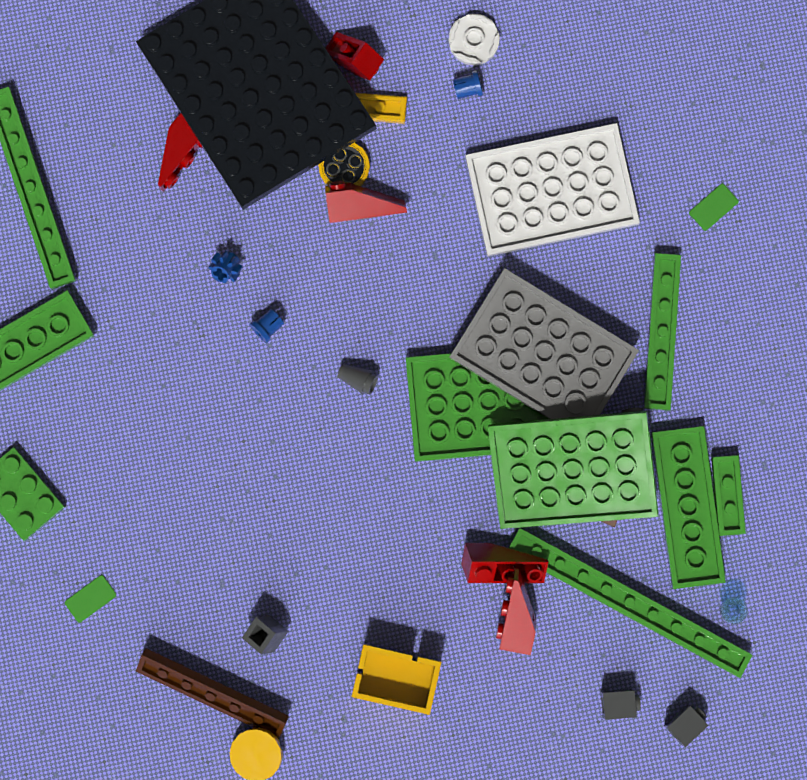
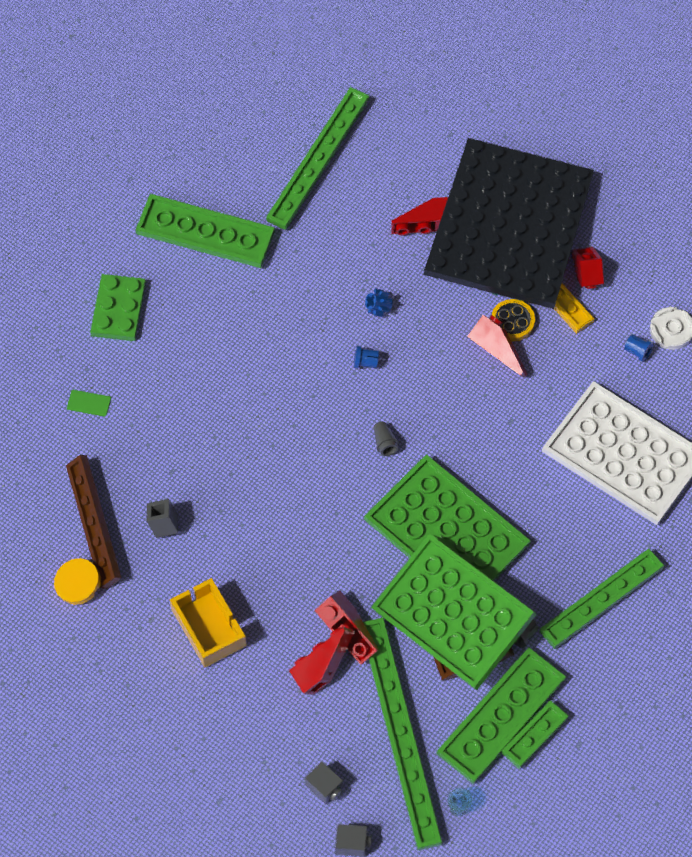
camera: 50 degrees right, 20 degrees down
(542, 351) = (514, 529): light grey plate -> none

